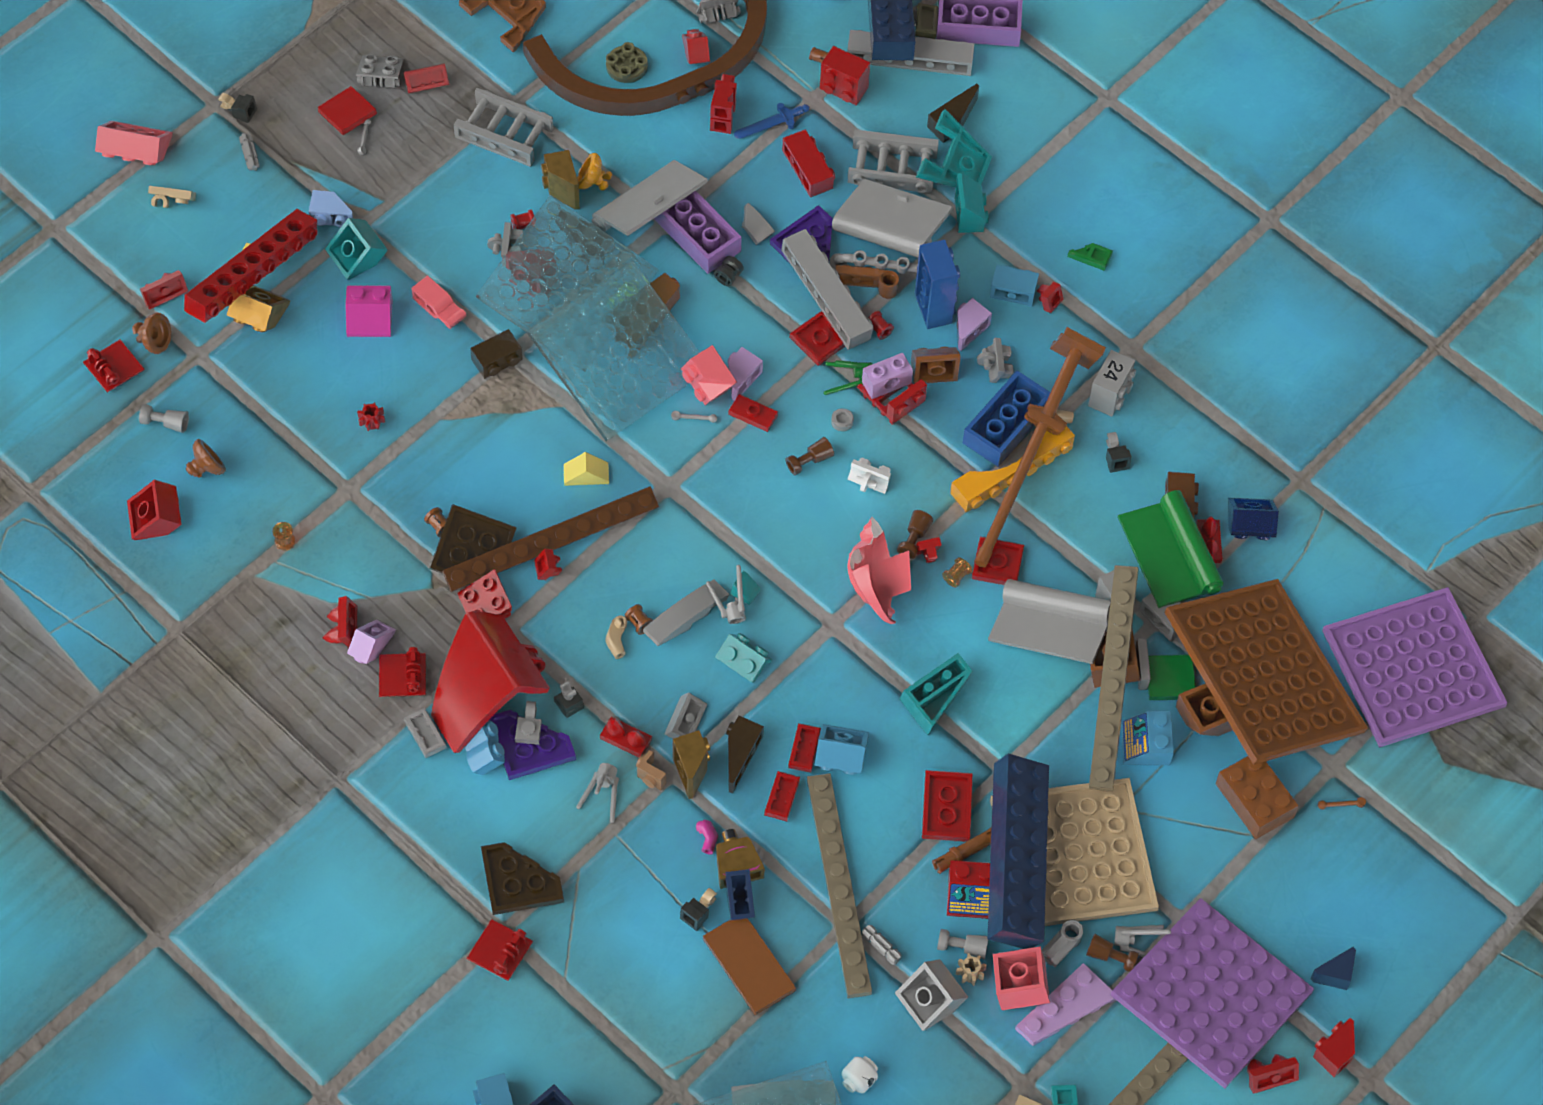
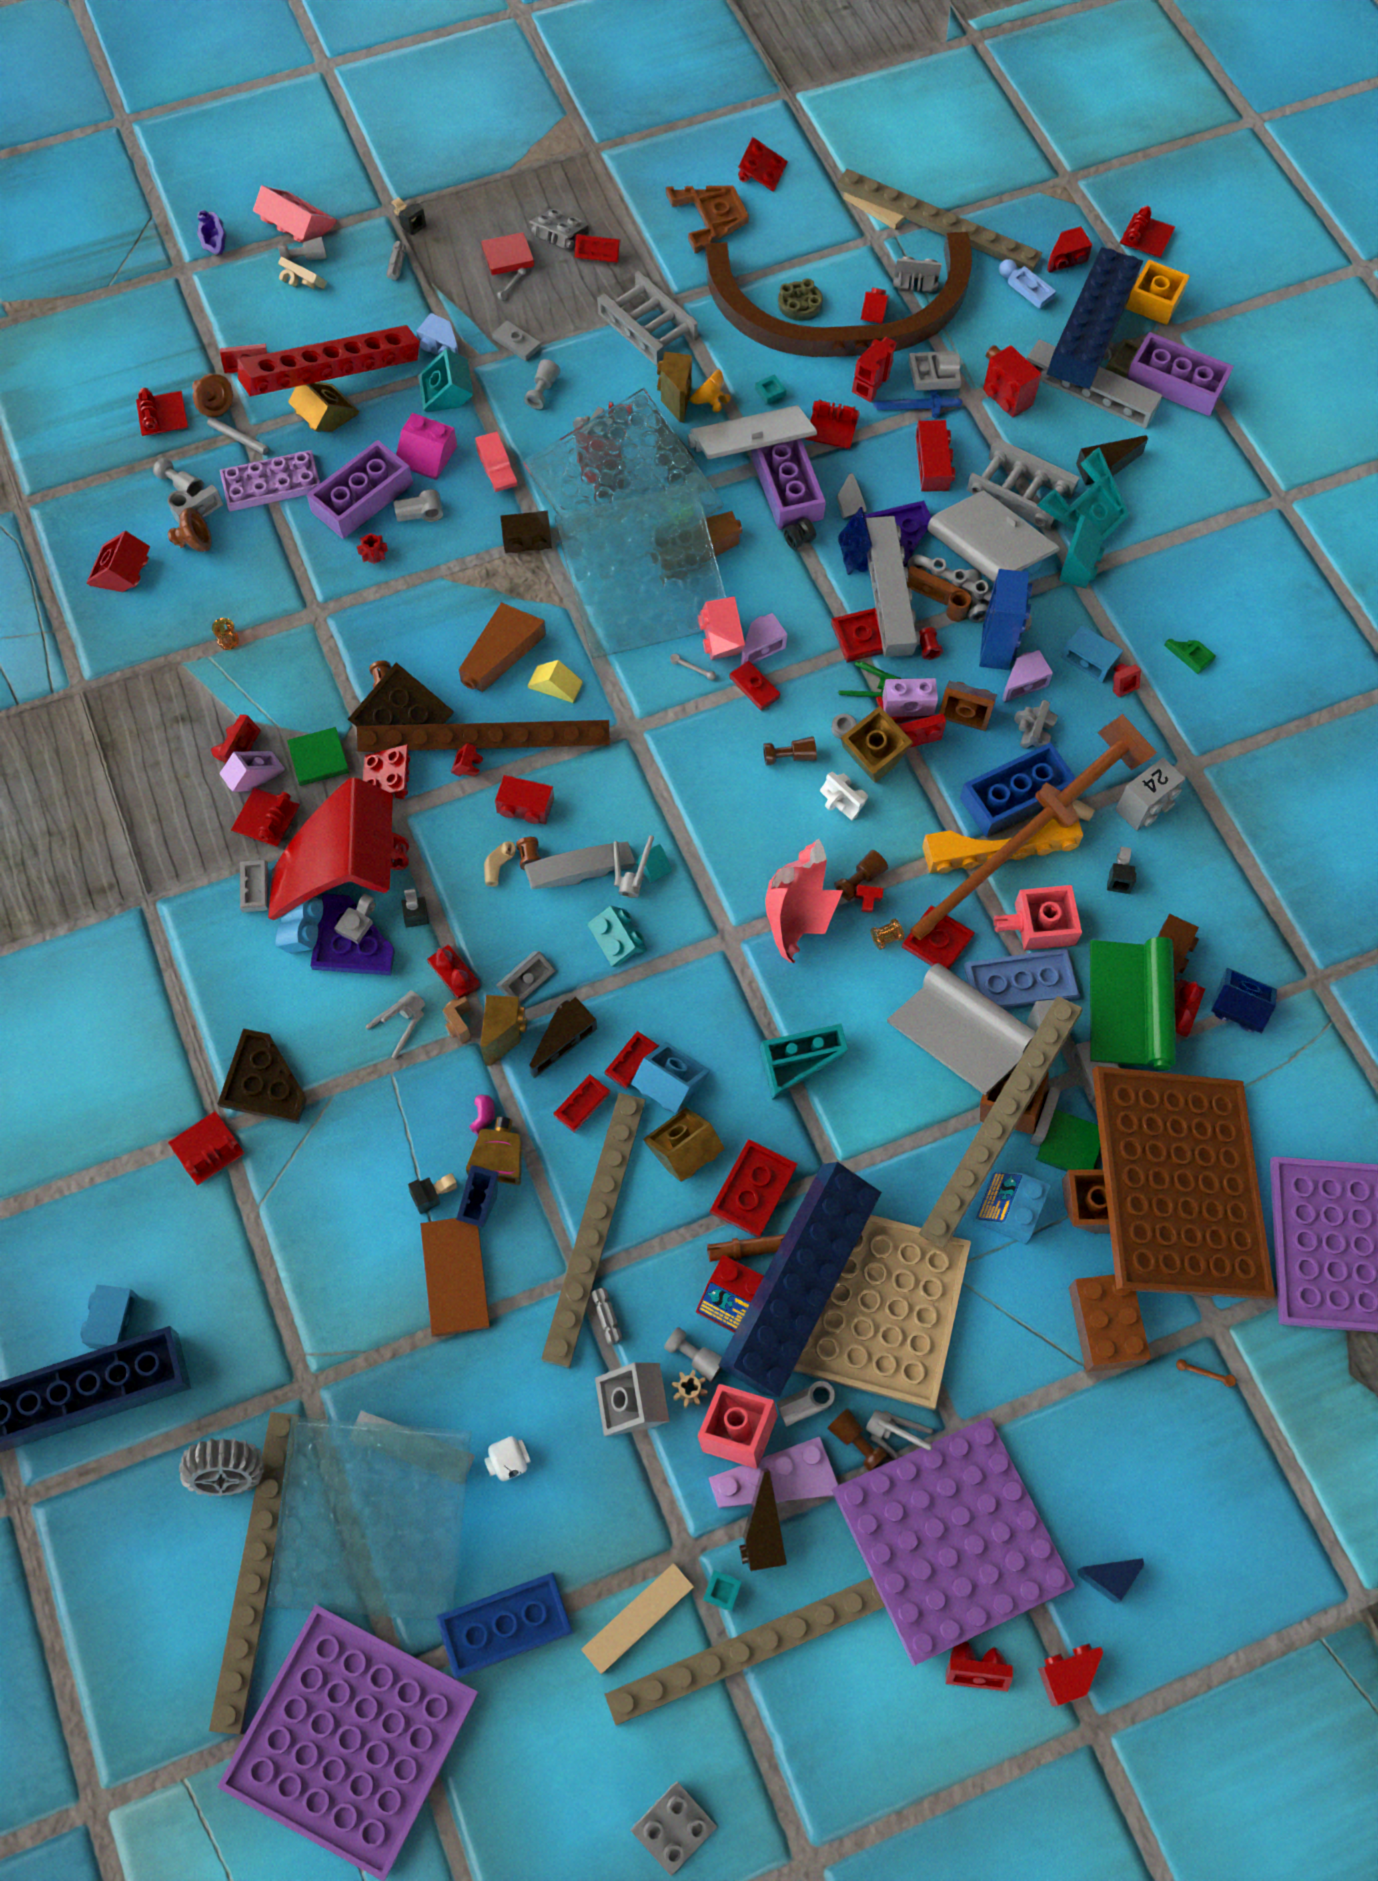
camera: 25 degrees right, 5 degrees up
(66, 184) = (211, 232): none -> dark purple arm
(168, 168) = (312, 249): none -> light grey piece
(194, 361) = (237, 435): none -> light grey bar
(200, 430) = (204, 502): none -> light grey plate
(245, 390) = (269, 480): none -> lavender tile
(334, 369) = (360, 489): none -> medium lavender brick
(396, 187) = (516, 340): none -> light grey plate
(396, 363) = (425, 506): none -> light grey piece
(418, 608) = (317, 756): none -> green tile
(441, 213) = (545, 377): none -> light grey piece
(526, 457) = (500, 646): none -> dark orange slope
(613, 577) = (524, 800): none -> red brick
(641, 153) = (770, 389): none -> teal plate
(711, 164) = (833, 424): none -> red hinge
(774, 87) = (935, 370): none -> light grey plate
(780, 262) = (855, 543): none -> clear blue hinge
(878, 424) = (876, 744): none -> pearl gold slope
(878, 793) = (684, 1144): none -> pearl gold slope
(906, 284) = (978, 611): none -> light grey piece
(1073, 512) = (1044, 918): none -> coral brick
(1074, 1042) = (762, 1533): none -> dark brown slope
(1078, 565) = (1024, 978): none -> medium blue tile

